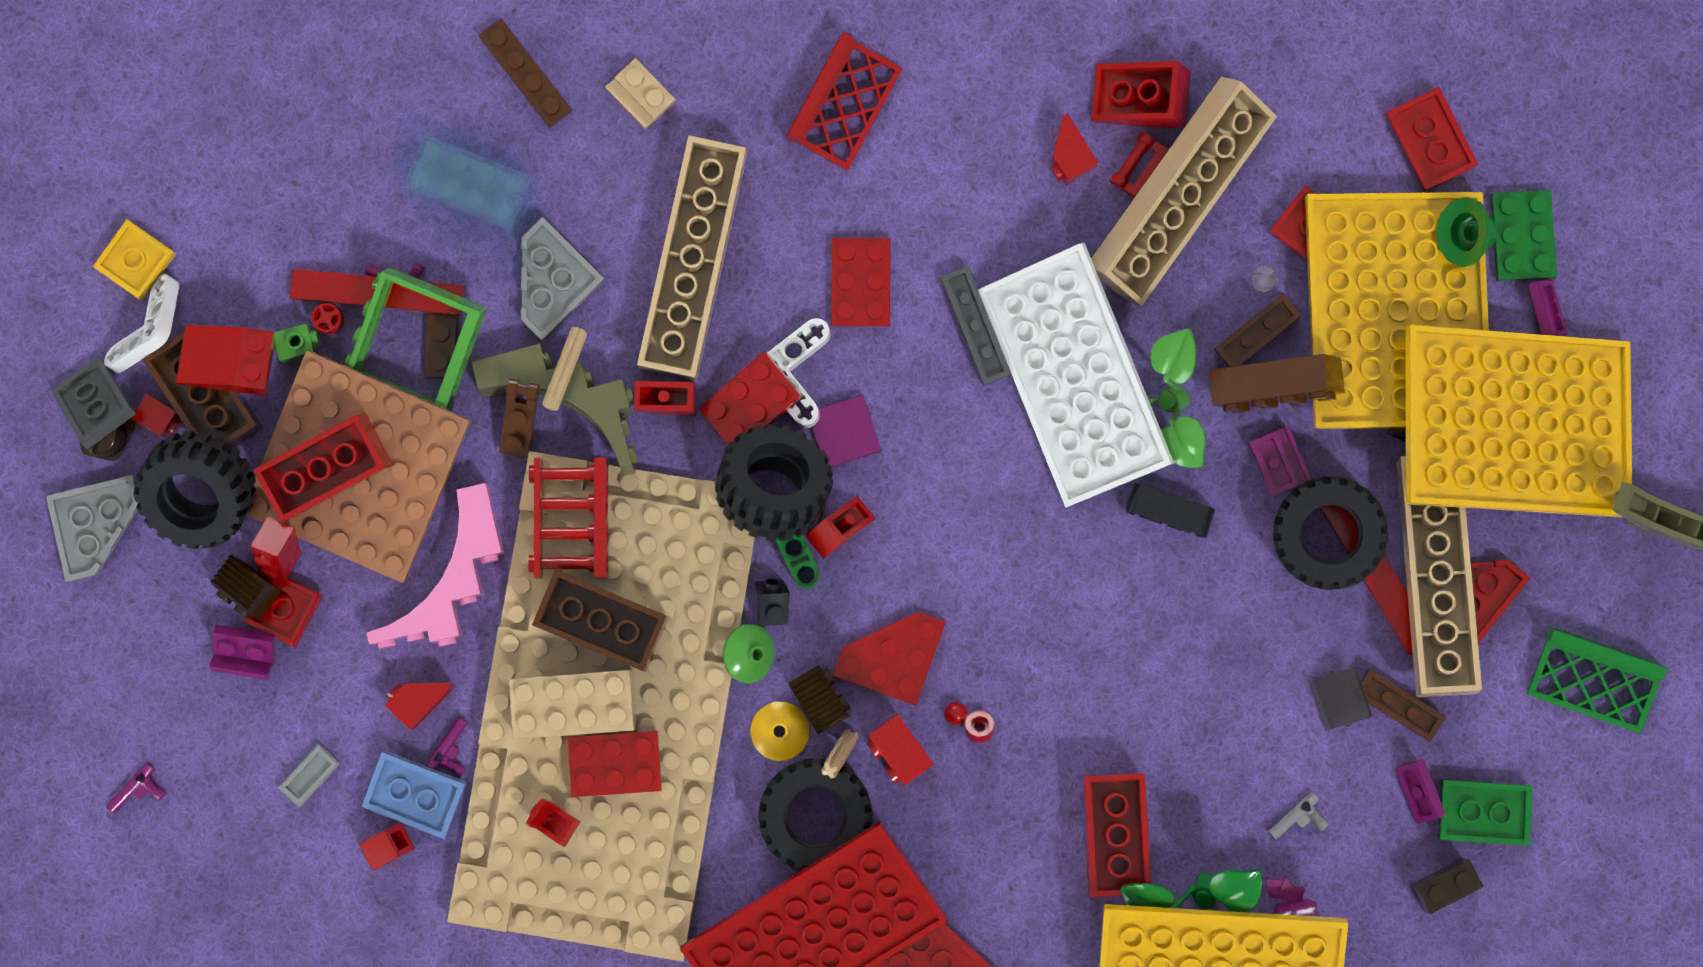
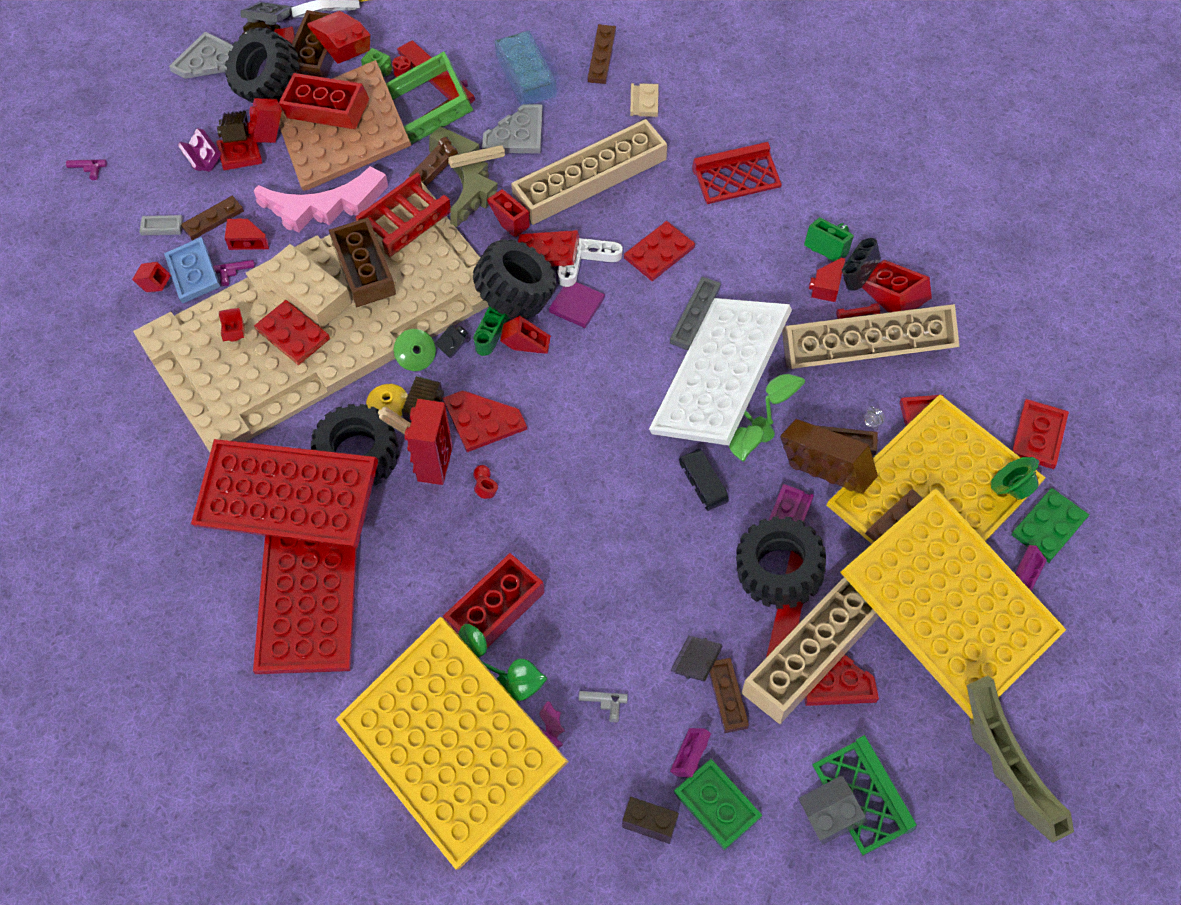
camera: 45 degrees right, 25 degrees down
(352, 712) = (212, 217): none -> reddish brown plate
(1026, 99) = (829, 239): none -> green brick
(1096, 110) = (861, 264): none -> black beam
(1392, 382) = (893, 515): none -> reddish brown plate
(1585, 722) = (832, 810): none -> dark grey slope

